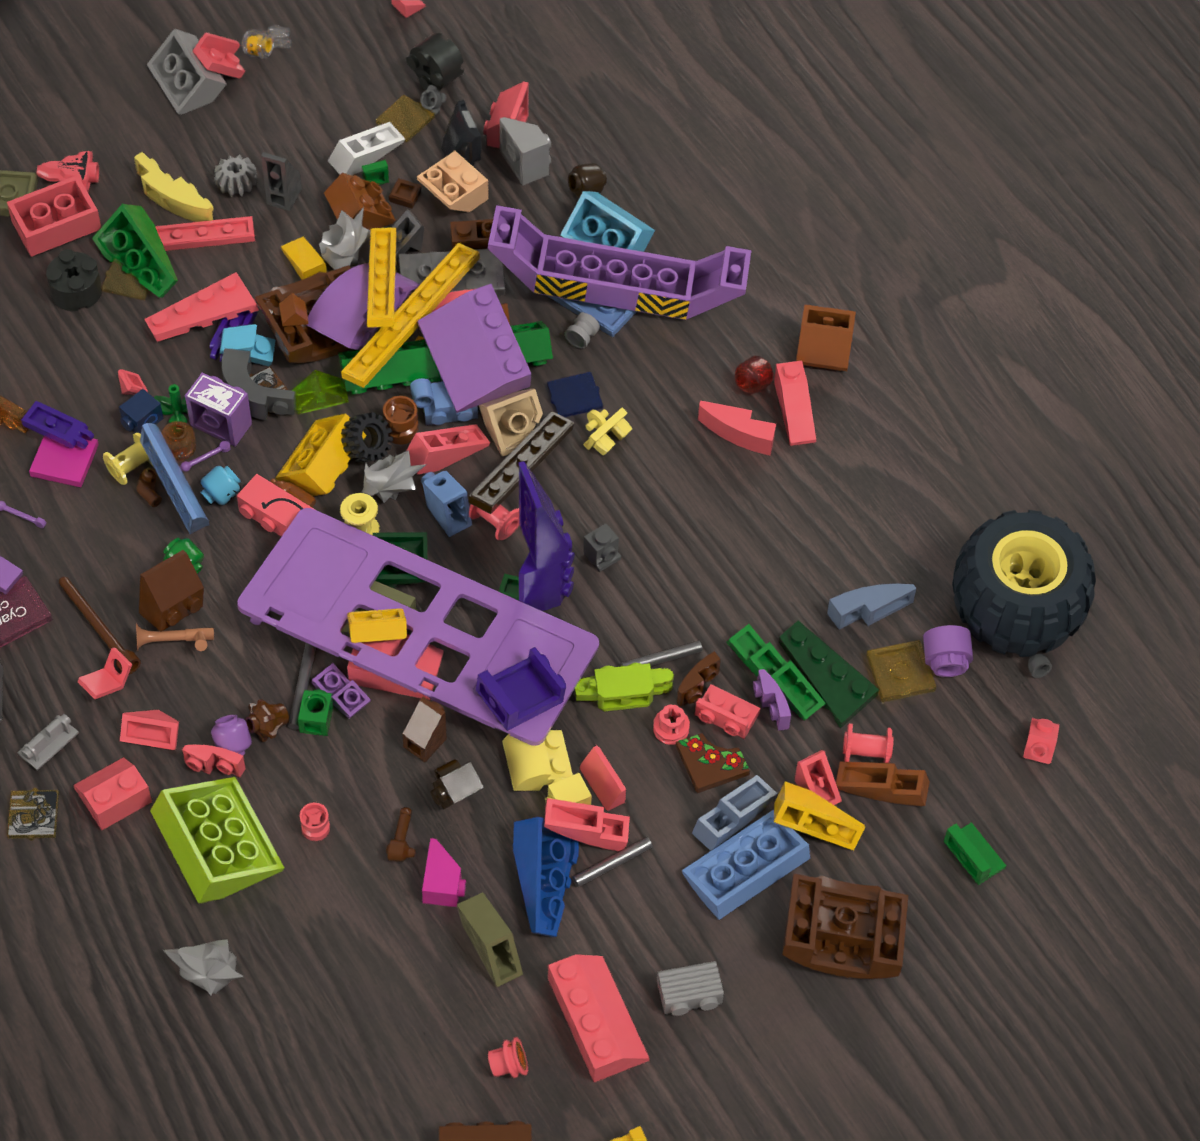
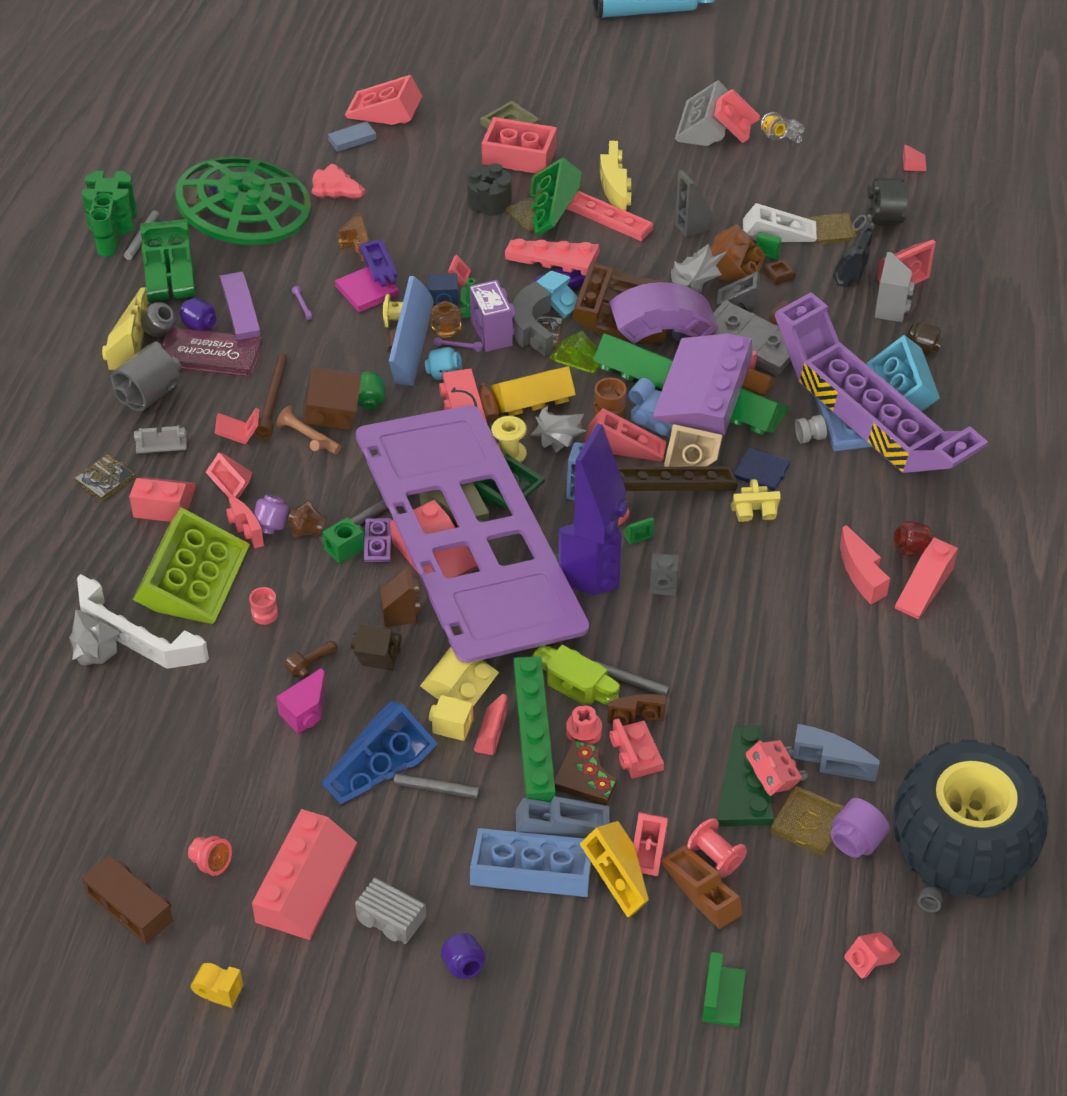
camera: 45 degrees right, 10 degrees down
(70, 166) = (569, 132): coral rock -> none
(235, 175) = (664, 192): light grey gear -> none
(271, 928) = (184, 651): none -> white slope
(293, 311) = (605, 285): dark orange slope -> none
(304, 258) = (660, 267): yellow slope -> none
(355, 441) = (583, 386): black tyre -> none
(377, 625) = (434, 505): yellow slope -> none
(381, 277) = (686, 297): yellow tile -> none
(418, 305) = (670, 336): yellow tile -> none
(456, 183) = (818, 277): light nougat slope -> none
(490, 938) = (288, 766): olive slope -> none
(522, 690) = (485, 615): dark purple panel -> none
(587, 824) = (439, 741): coral slope -> none
(644, 759) = (533, 729): none -> green brick
(757, 655) = (704, 749): green slope -> none
(772, 697) = (679, 764): medium lavender slope -> none
(778, 977) = (463, 955): none -> dark purple head
(826, 337) = (1000, 549): dark orange slope -> none
(845, 928) = (550, 959): reddish brown slope -> none
(846, 648) = (774, 766): none -> coral piece

